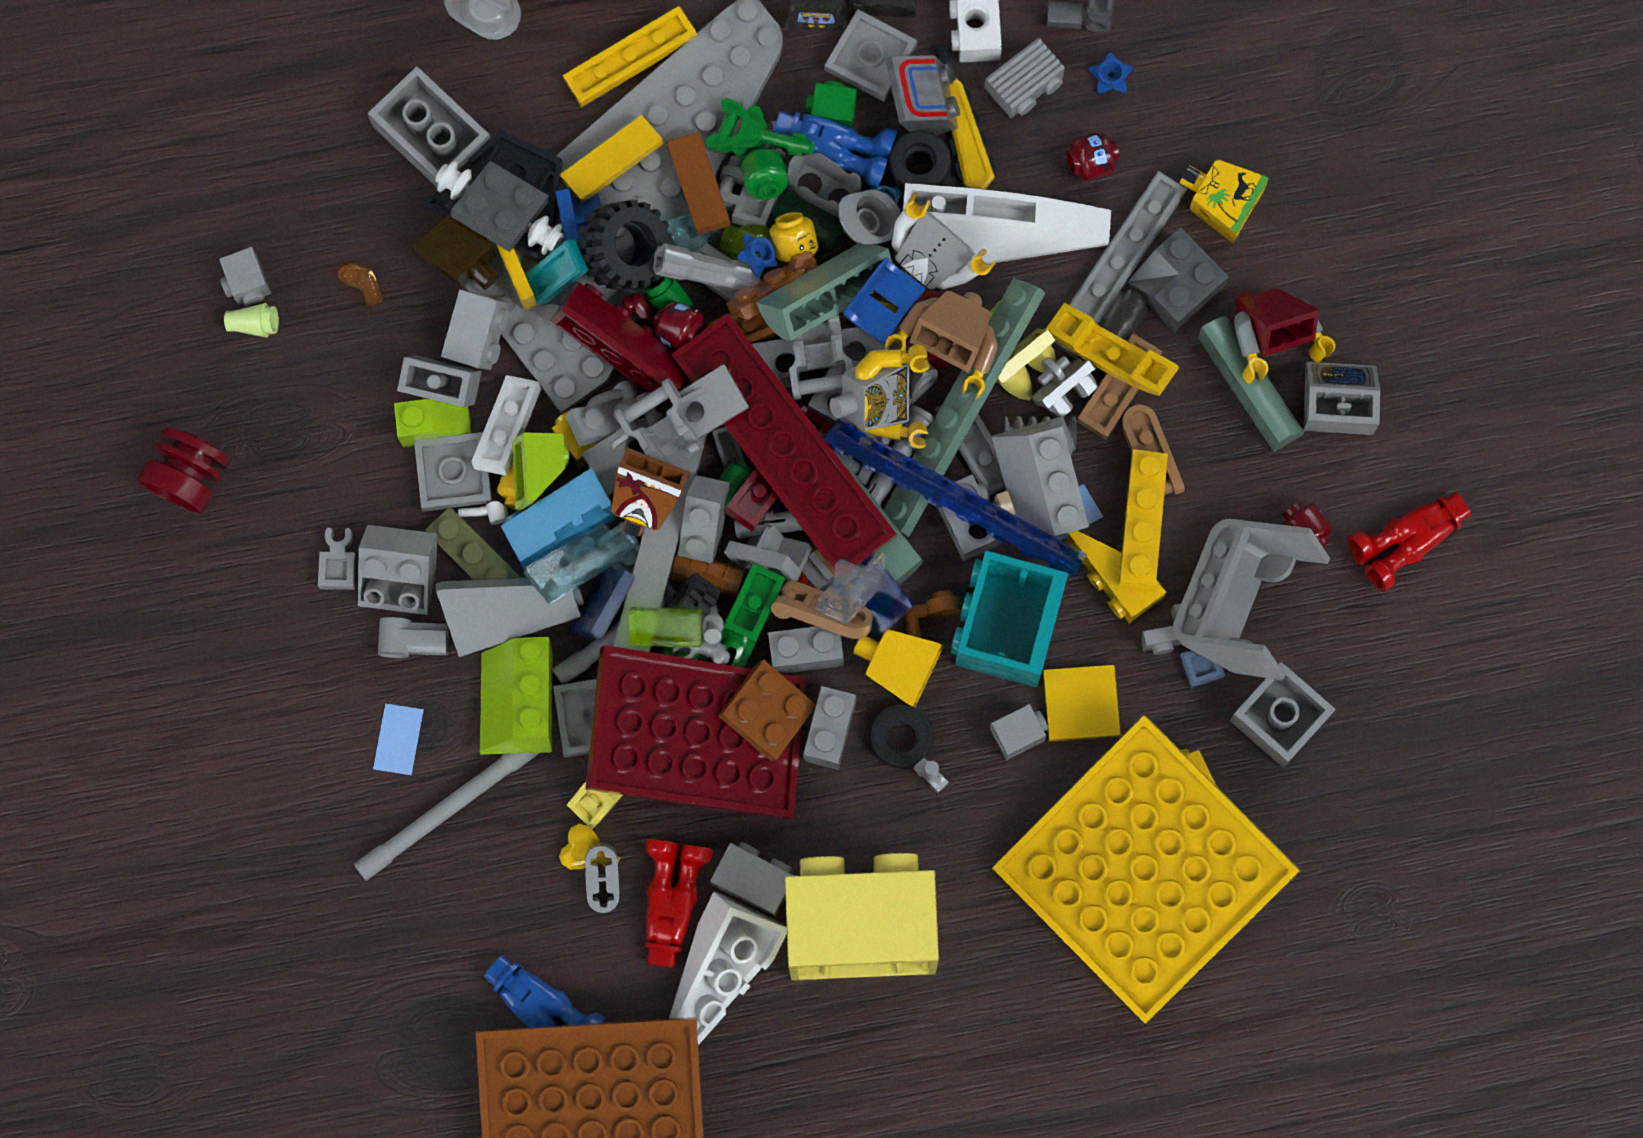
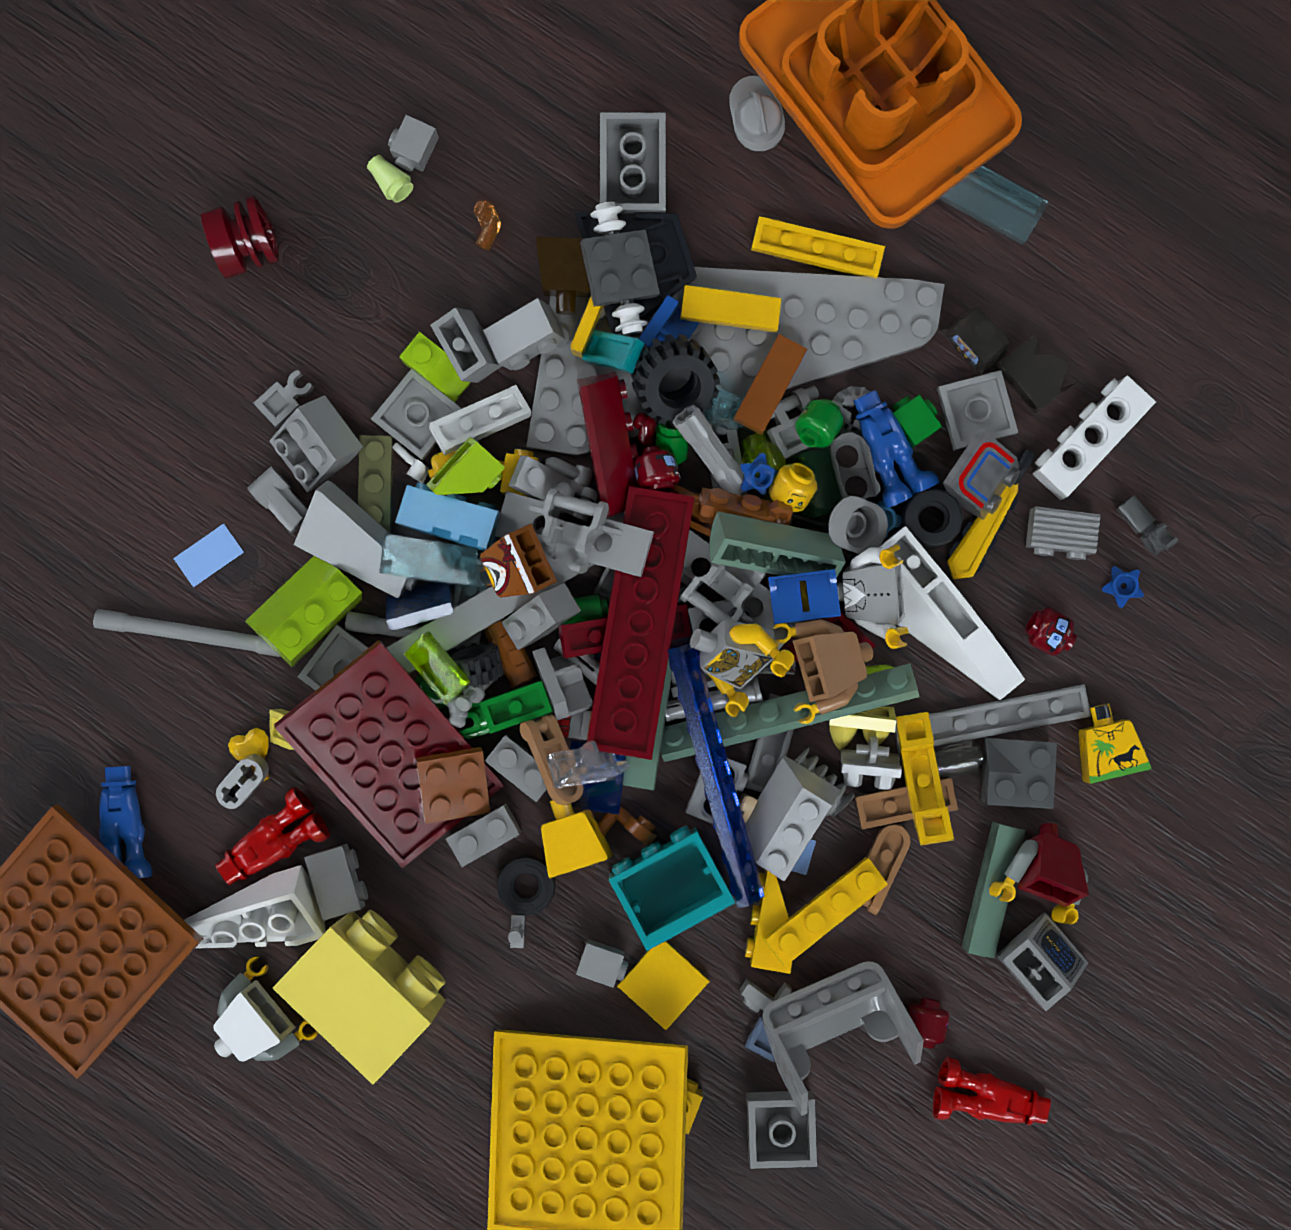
camera: 45 degrees right, 10 degrees up
(752, 133) = (841, 387): green piece -> none
(801, 1049) = (253, 1023): none -> white torso

